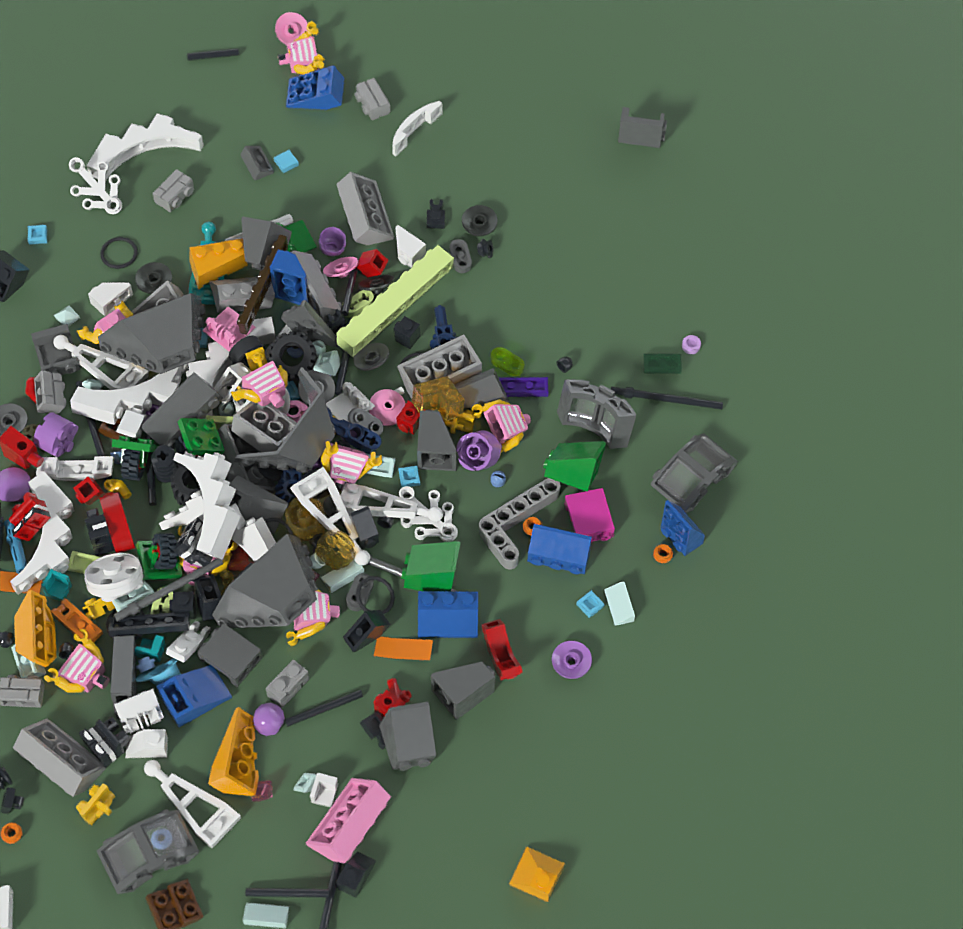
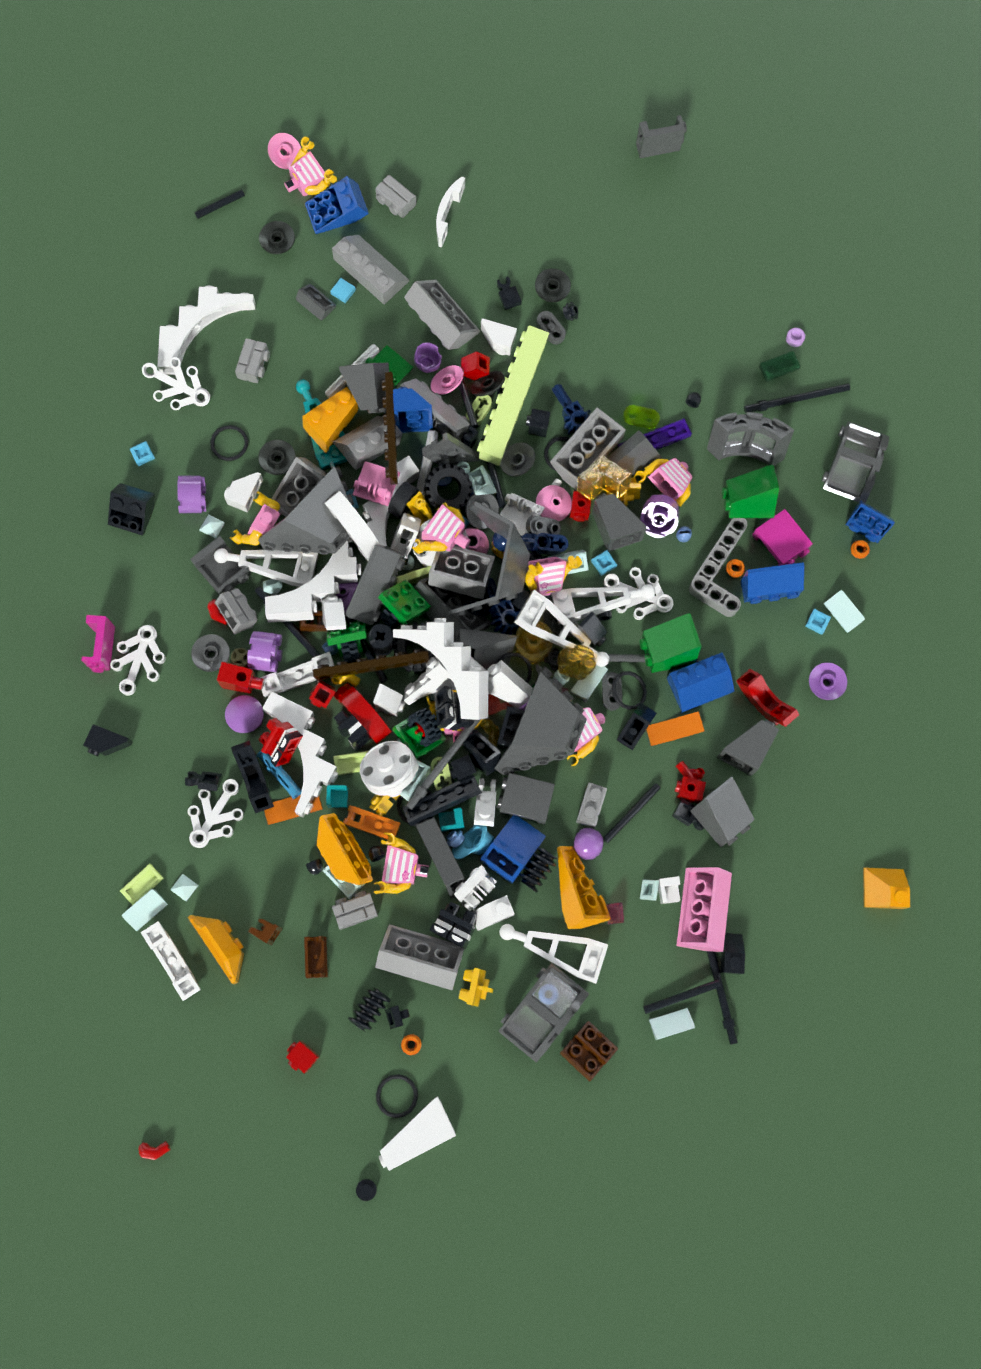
camera: 25 degrees left, 15 degrees up
(60, 280) = (190, 494): none -> medium lavender brick
(138, 478) = (363, 665): none -> dark brown plate
(144, 518) = (389, 701): none -> white slope
(184, 347) = (353, 523): none -> white slope
(208, 720) = (537, 869): none -> black piece
(248, 97) = (276, 231): none -> pearl dark grey dish
(319, 149) = (369, 267): none -> light grey slope

